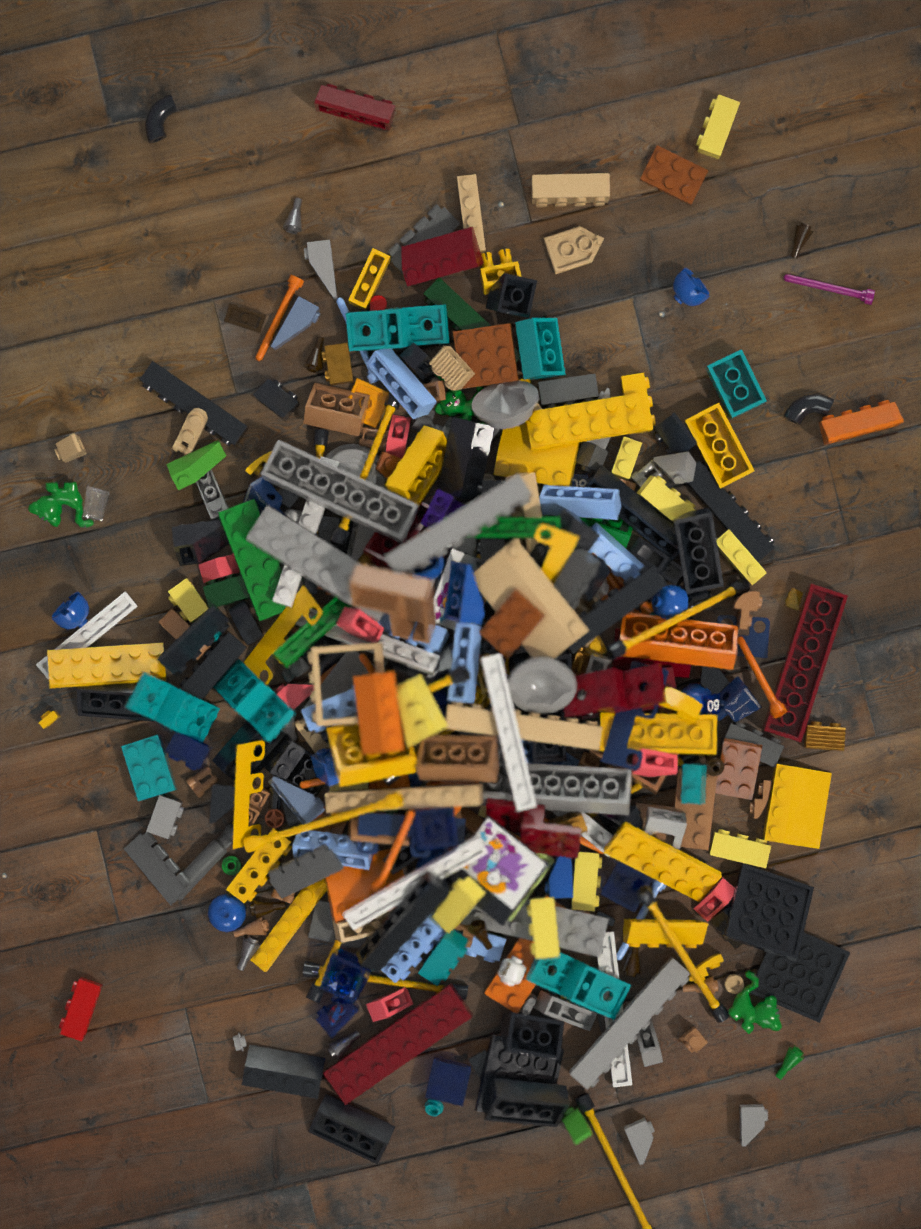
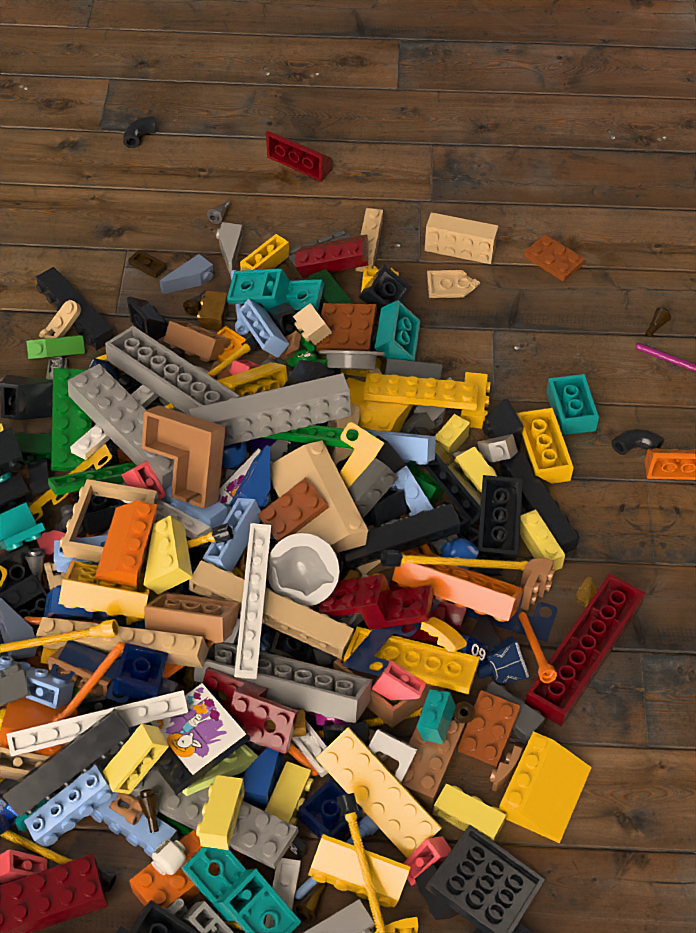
camera: 15 degrees right, 35 degrees down
(218, 568) = (35, 425): coral slope -> none
(294, 284) = (199, 249): orange piece -> none
(444, 957) = (99, 825): teal brick -> none
(689, 289) = (546, 328): blue cylinder -> none
(717, 126) = (601, 233): light yellow brick -> none
(824, 737) = (591, 726): pearl gold brick -> none

